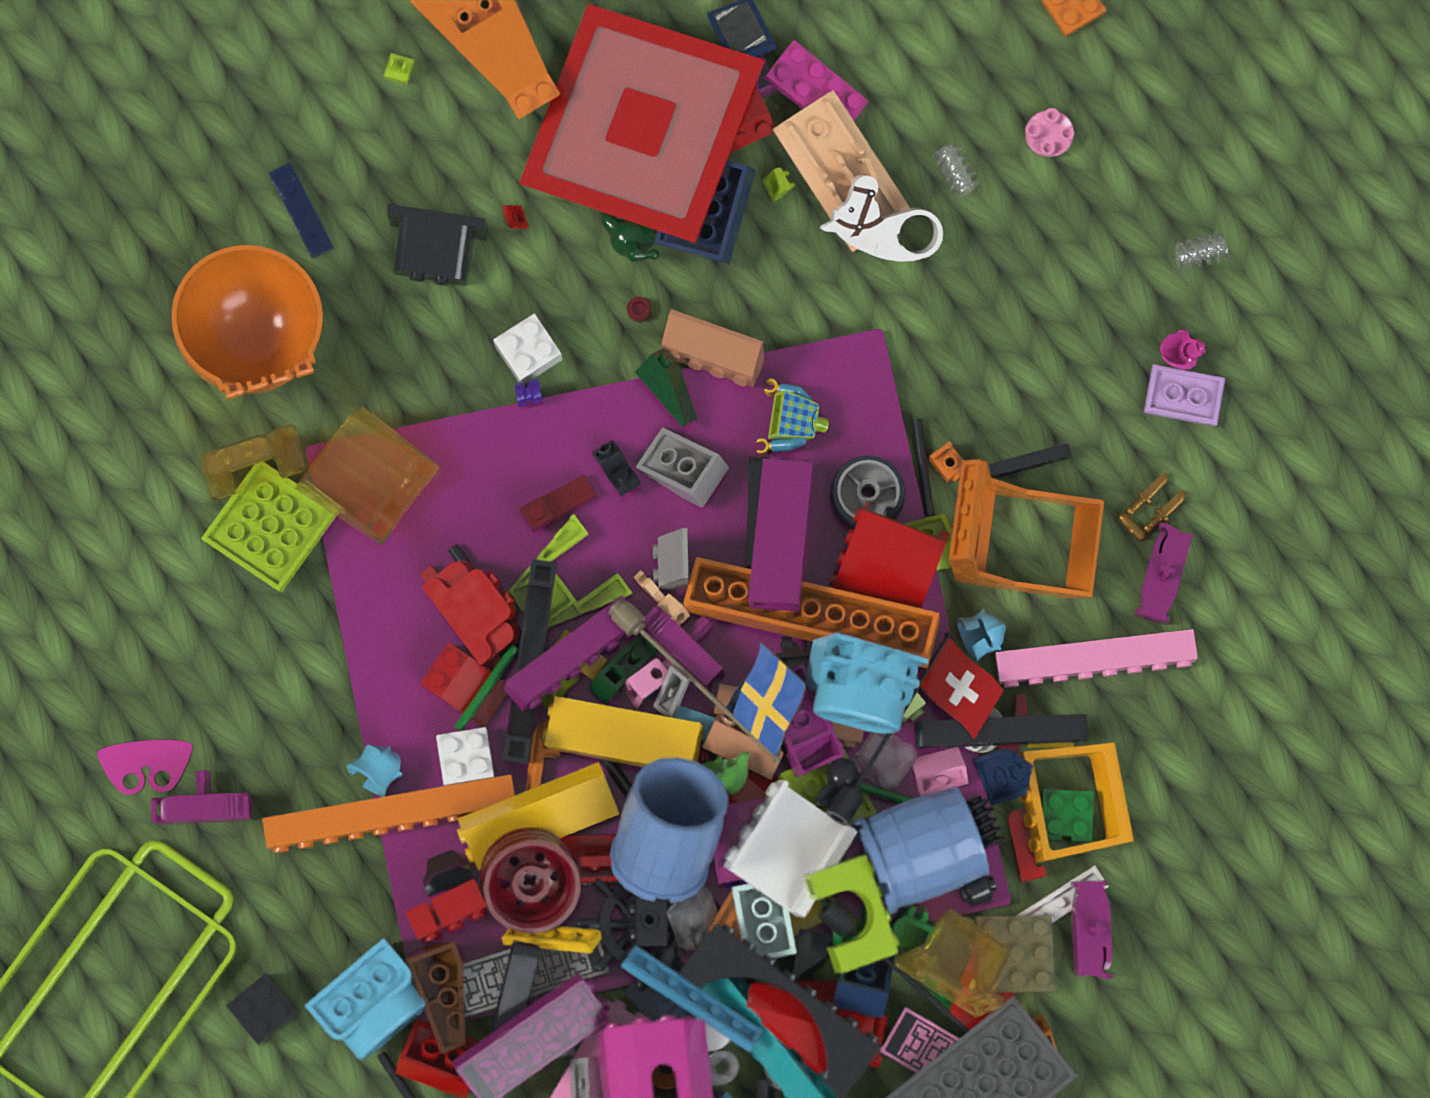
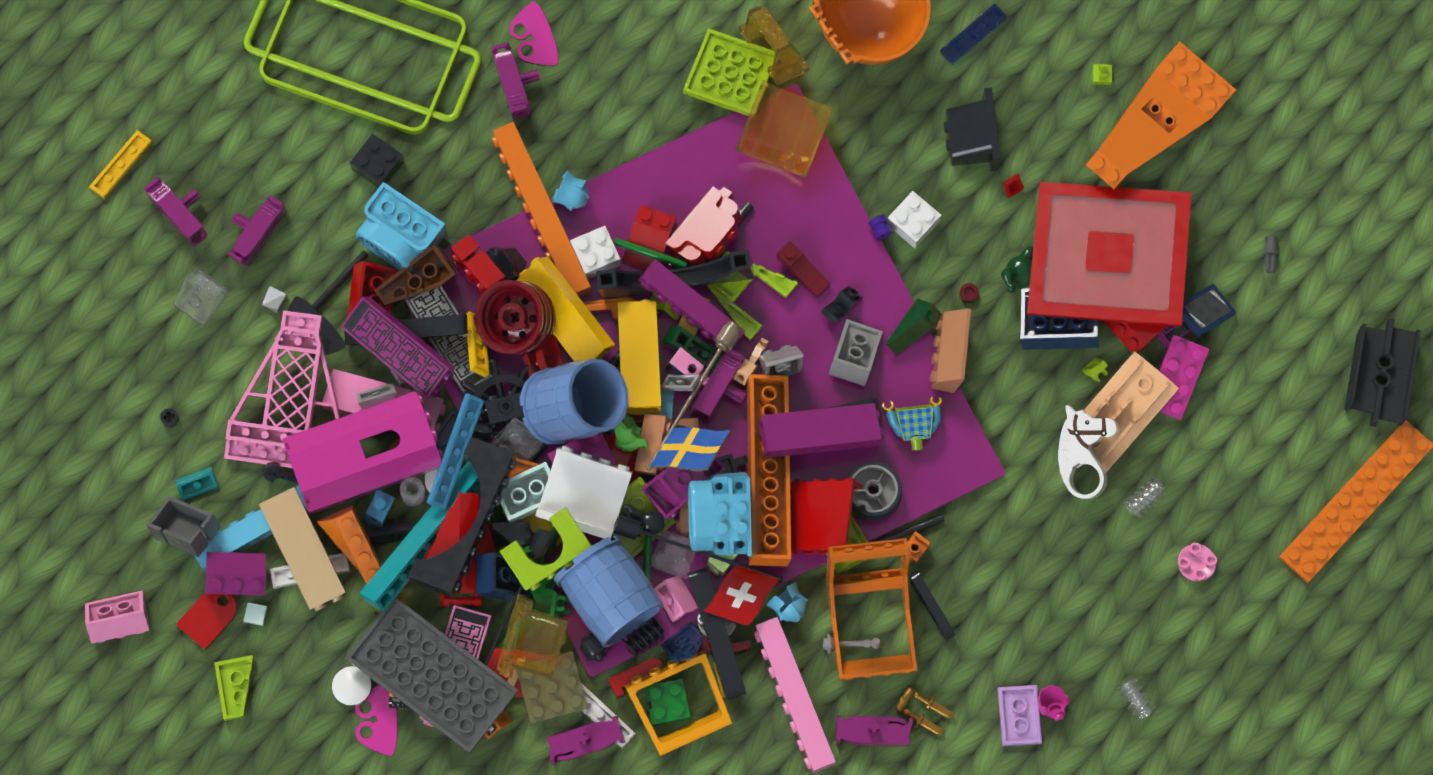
camera: 75 degrees right, 5 degrees down
(1042, 599) = (829, 645): none -> light grey piece

